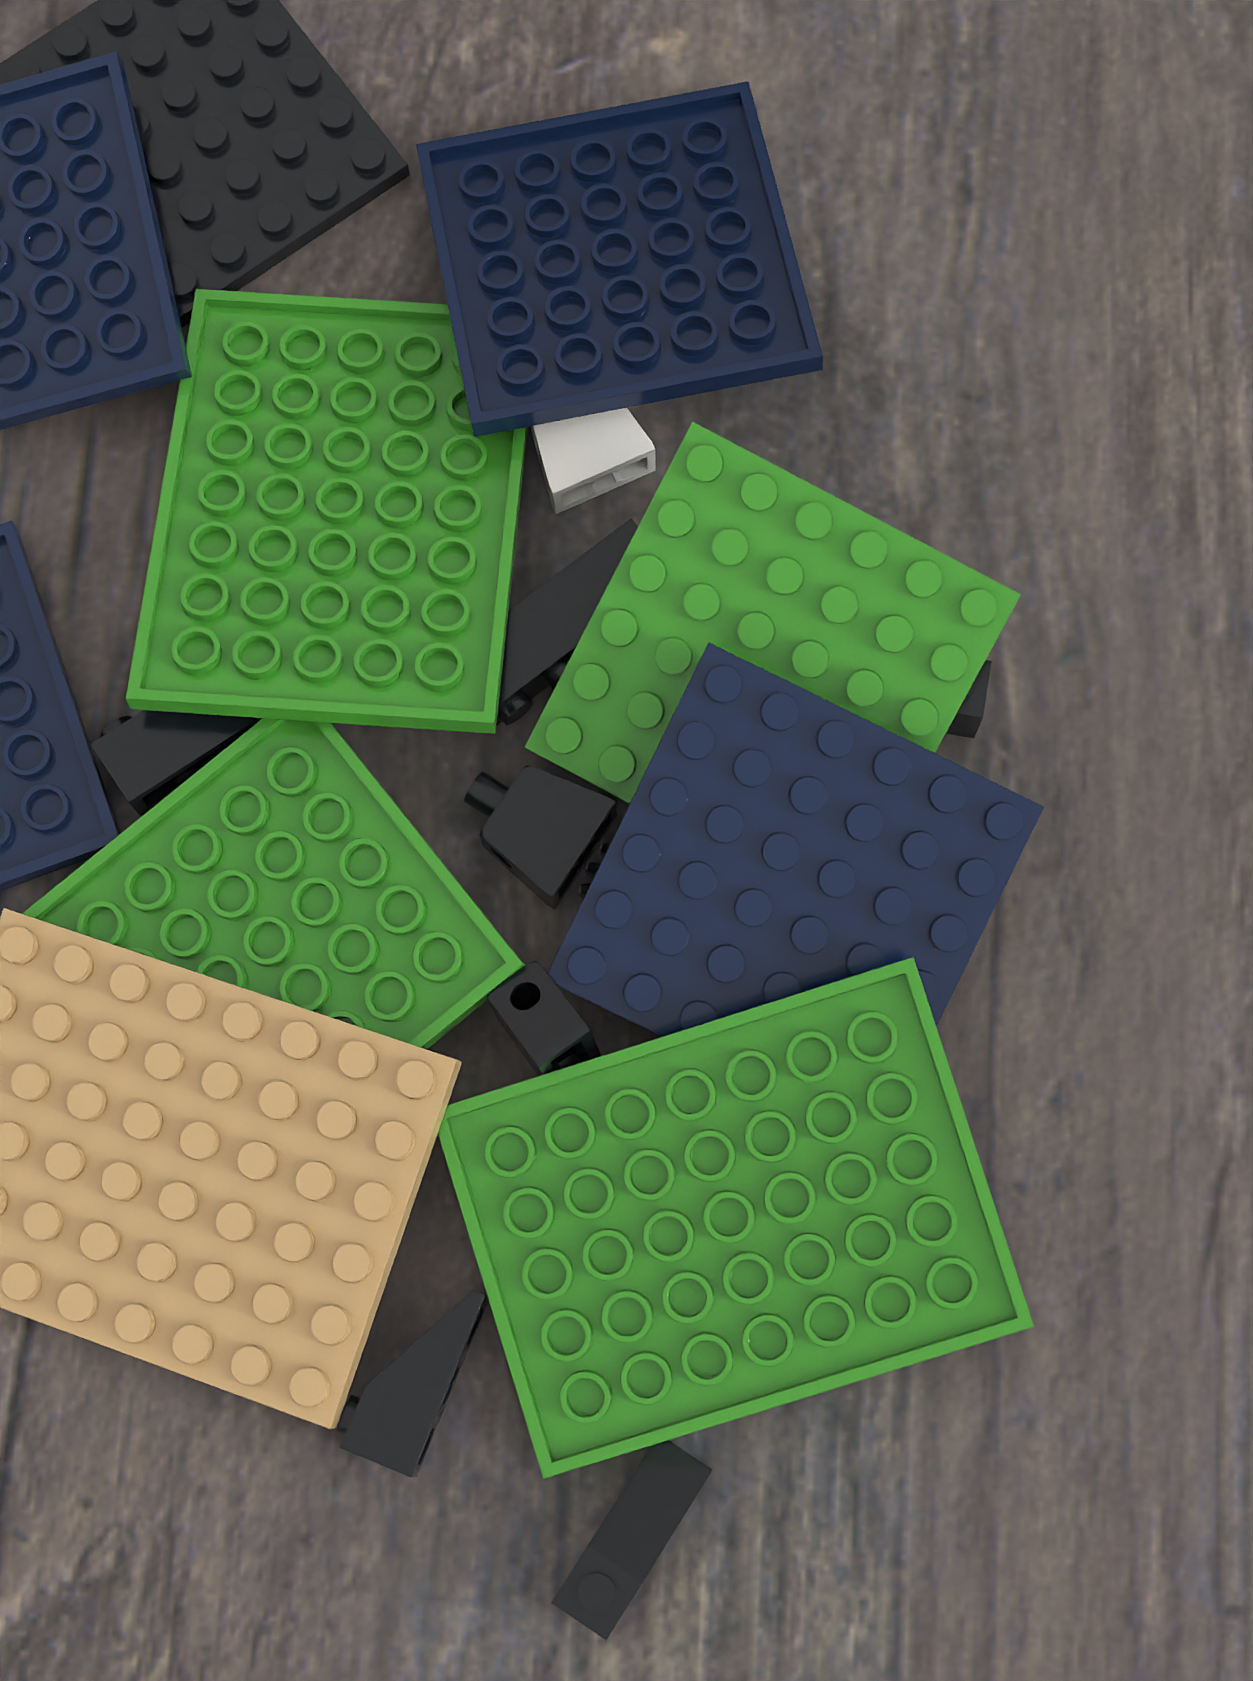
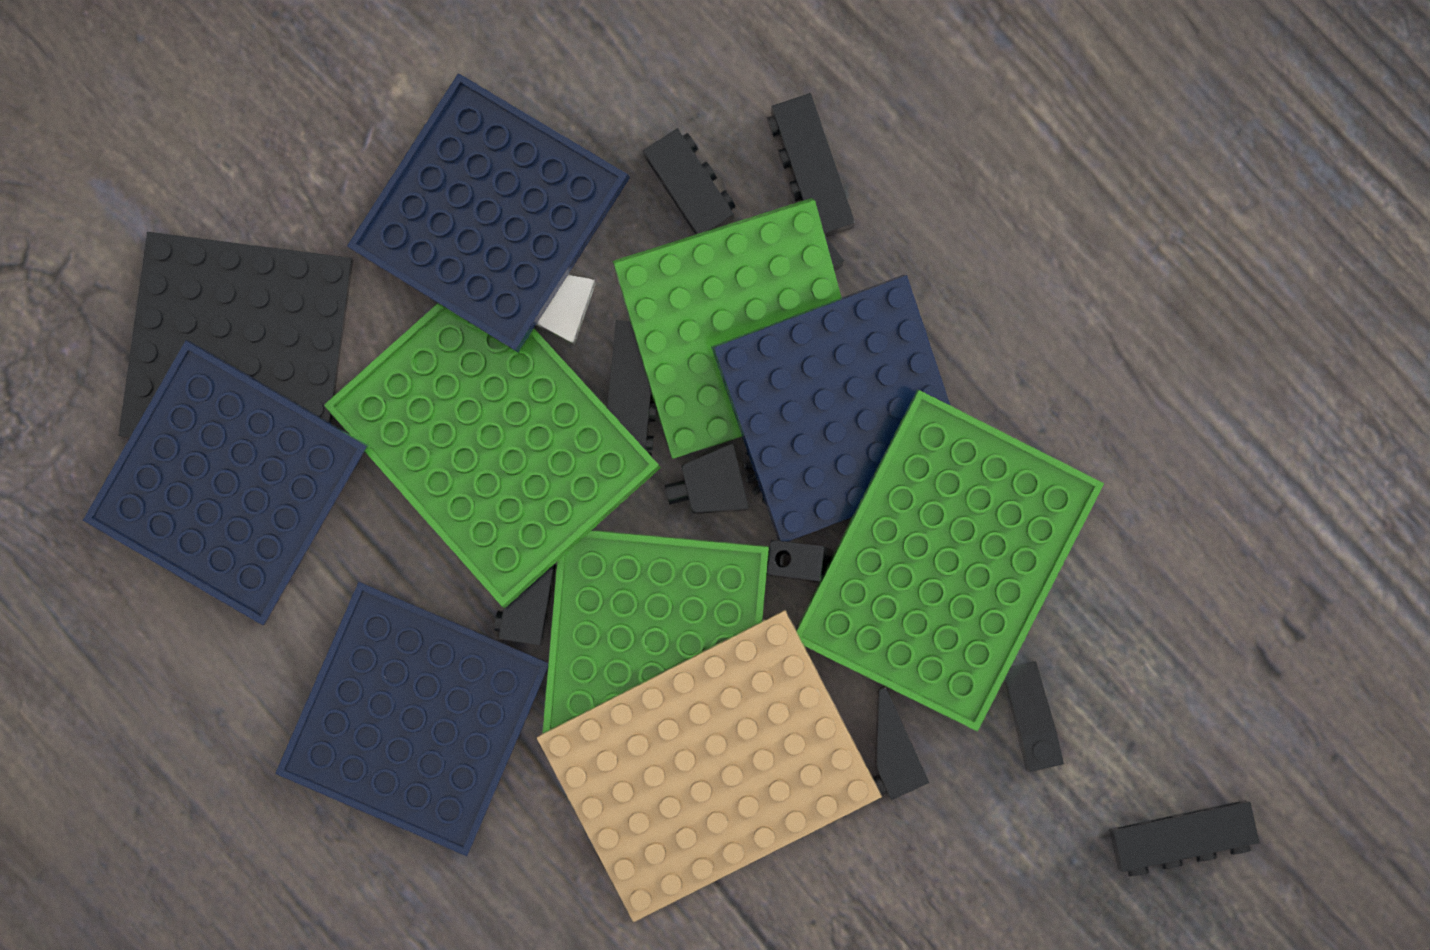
camera: 50 degrees left, 10 degrees up
(890, 442) = (689, 182): none -> black brick
(1060, 575) = (810, 161): none -> black brick

